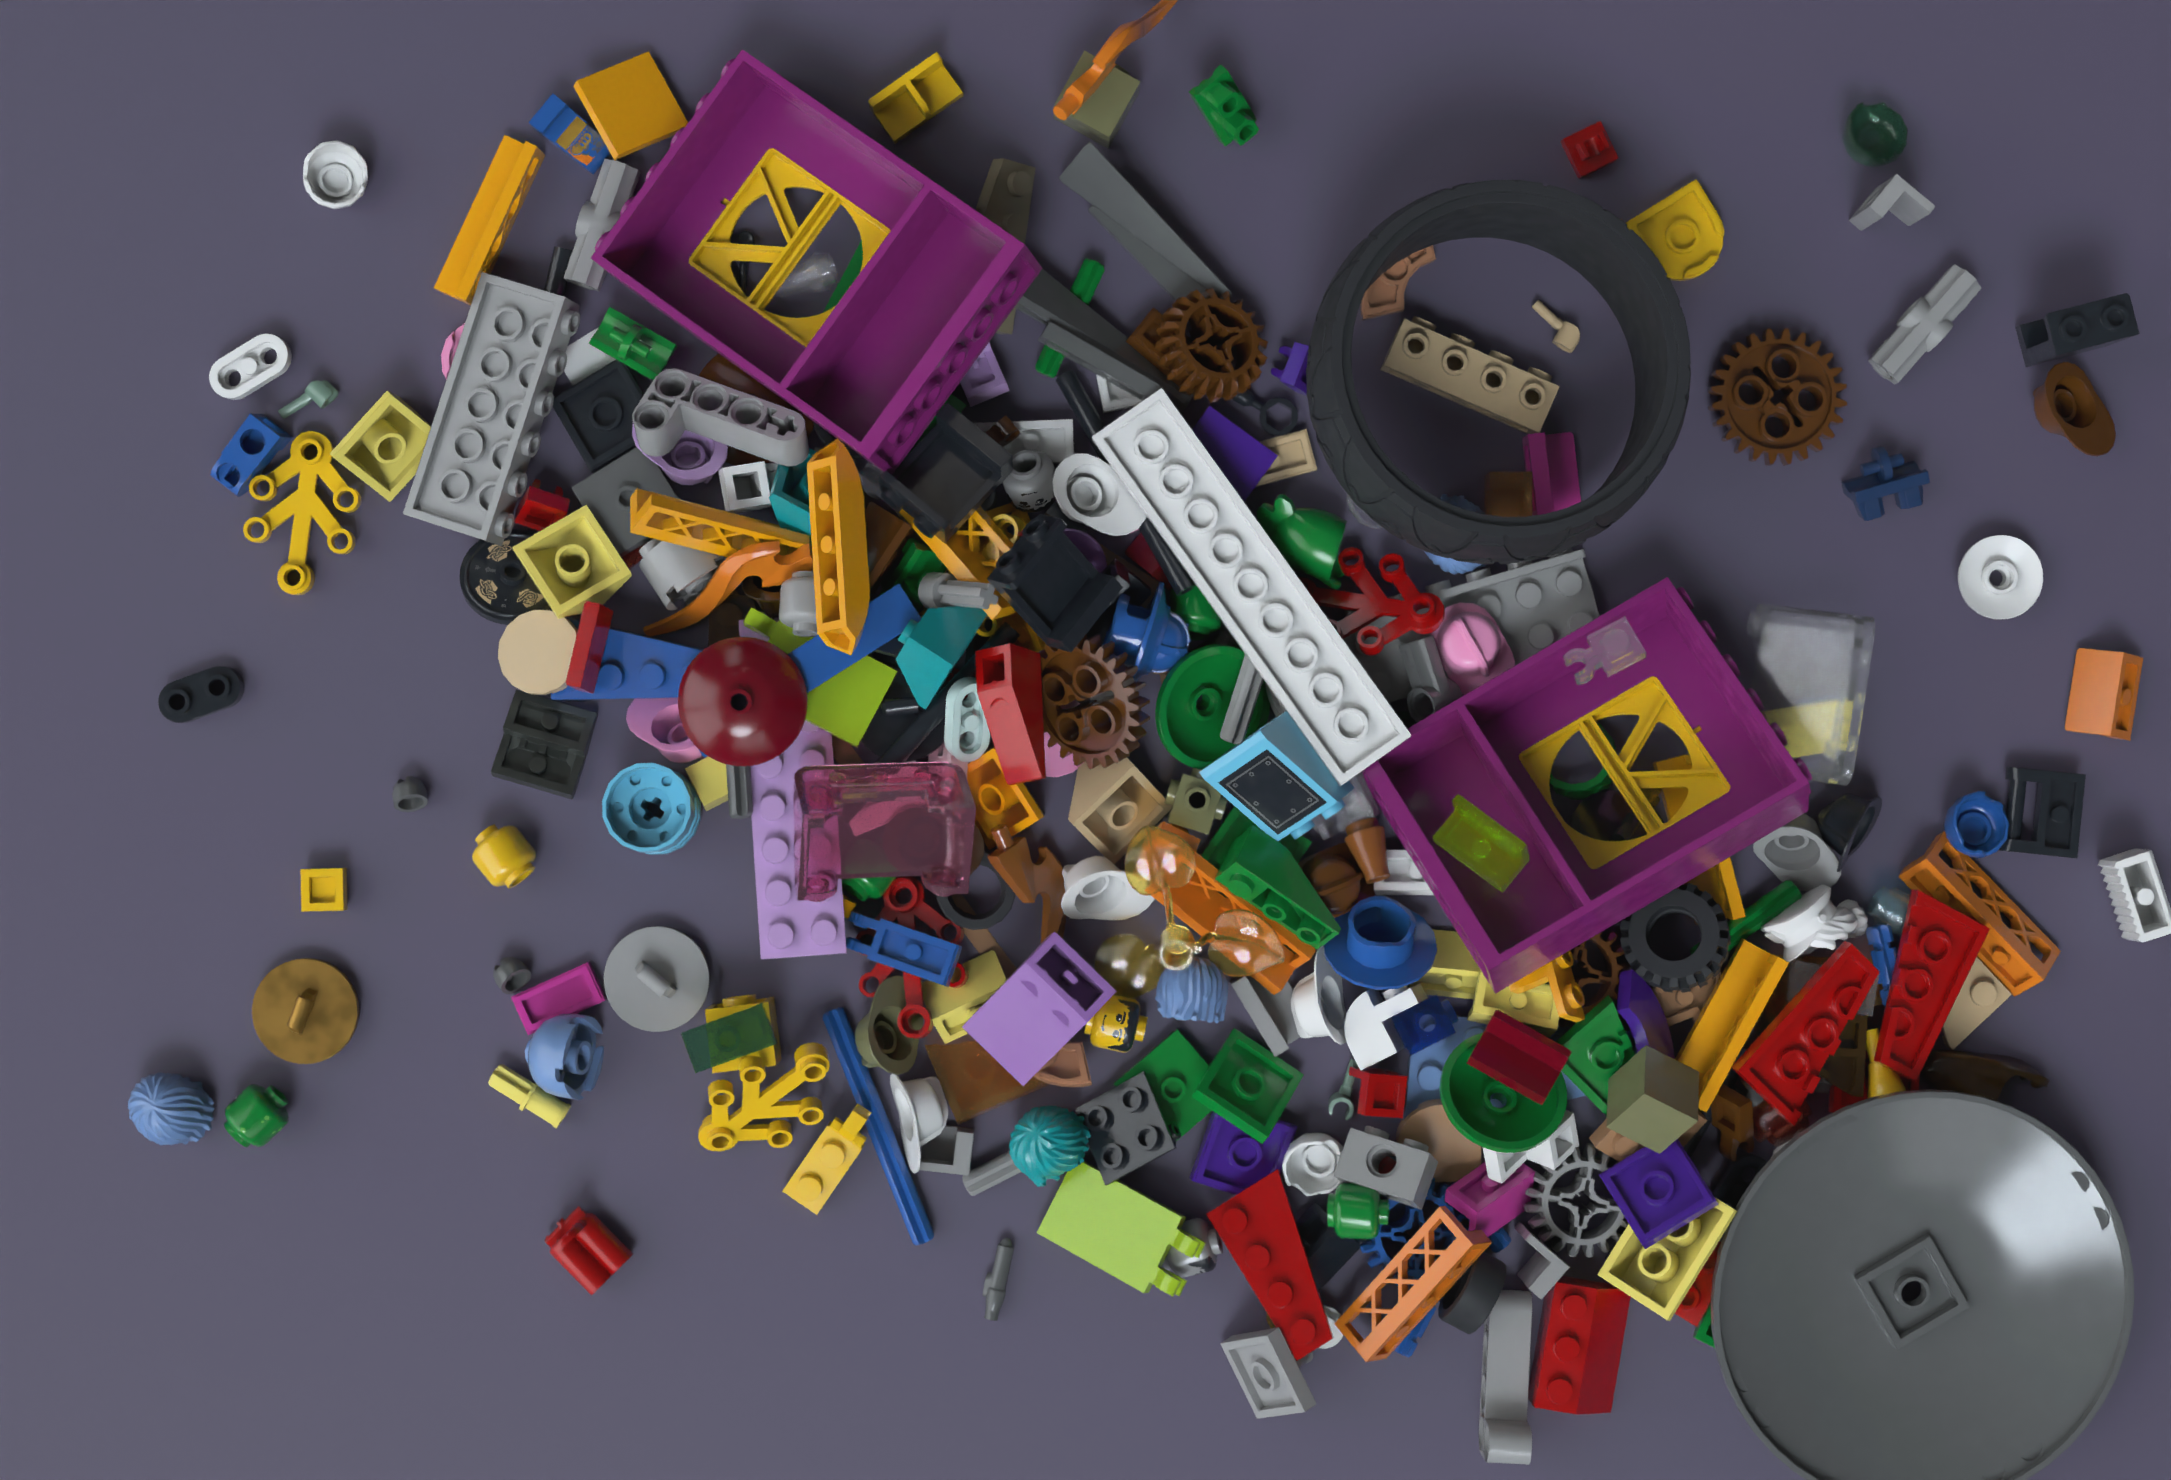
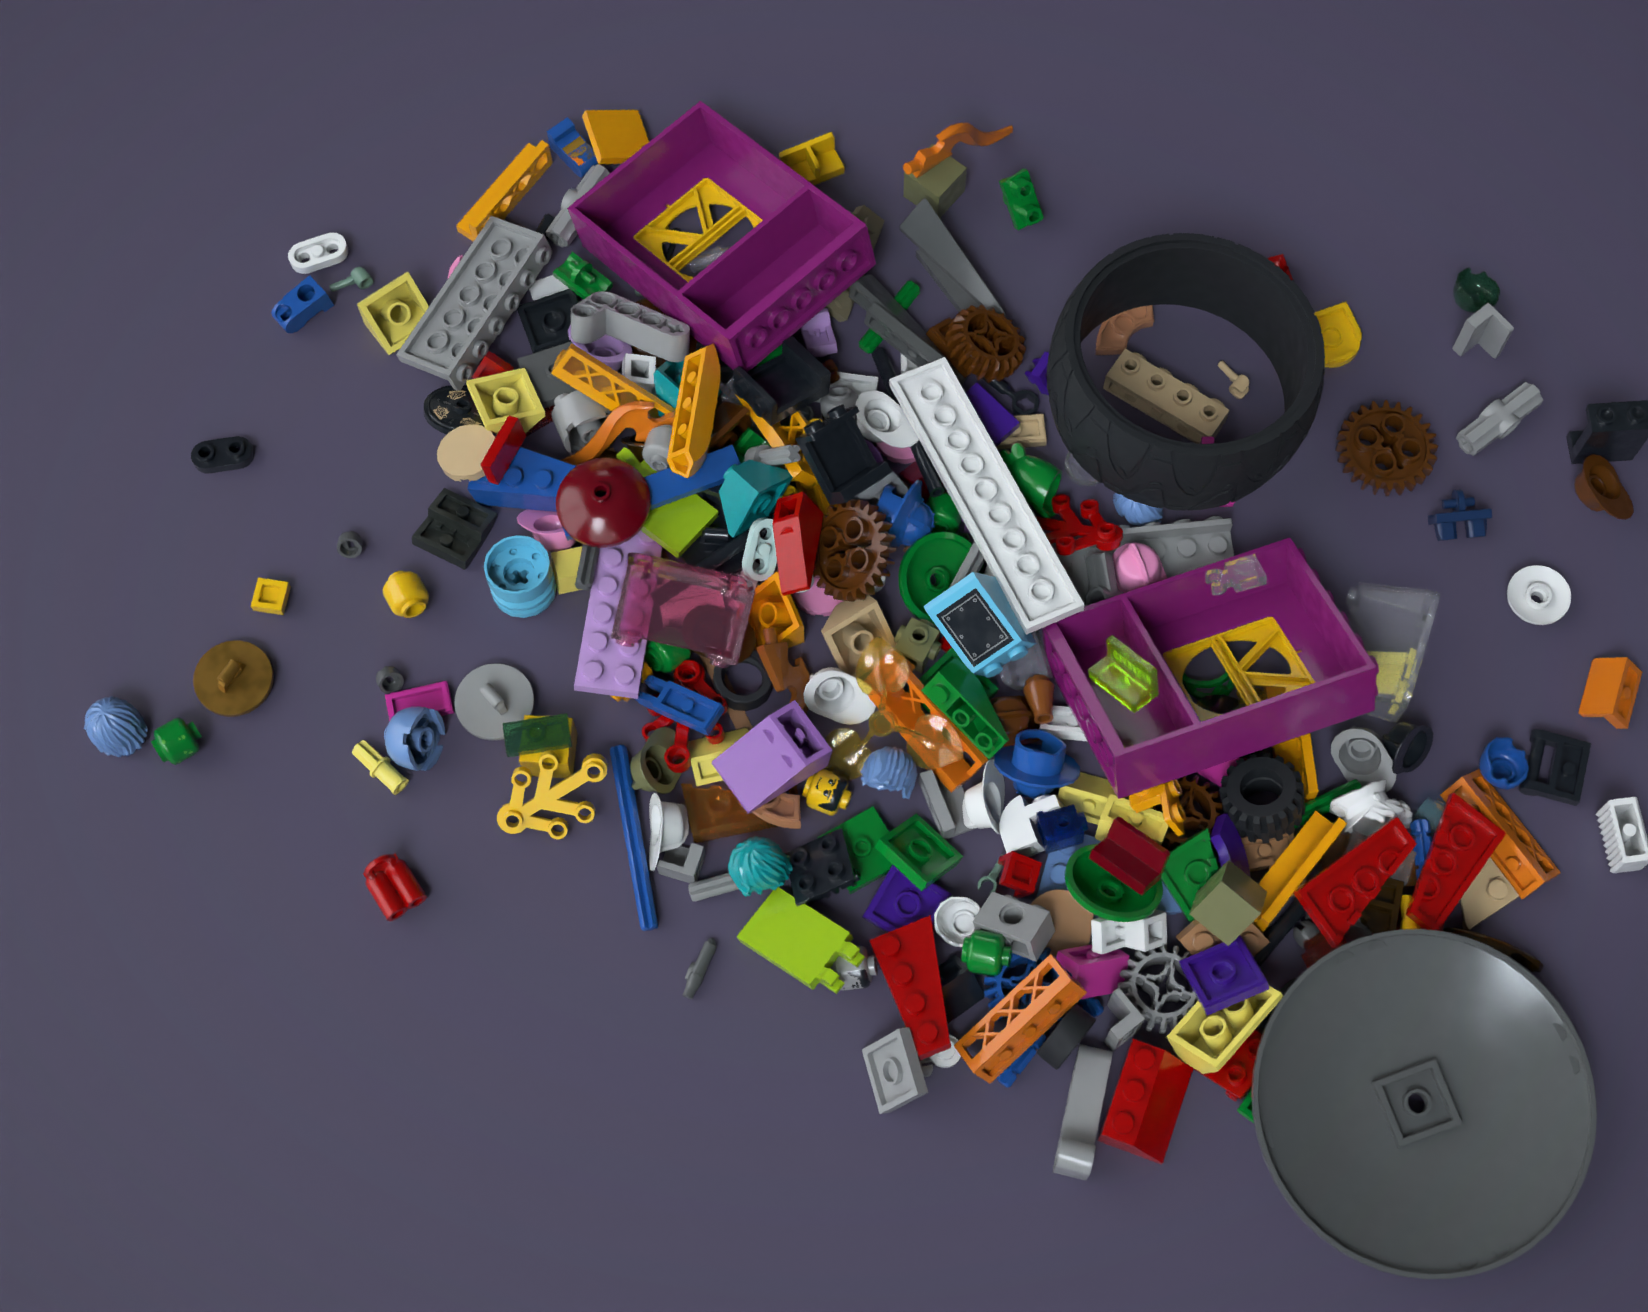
camera: 10 degrees right, 20 degrees down
(303, 505) = (327, 345): yellow plant -> none
(335, 174) = (409, 144): white hair -> none
(828, 1160) = (590, 852): yellow hinge -> none
(1734, 1117) = (1290, 945): reddish brown plate -> none

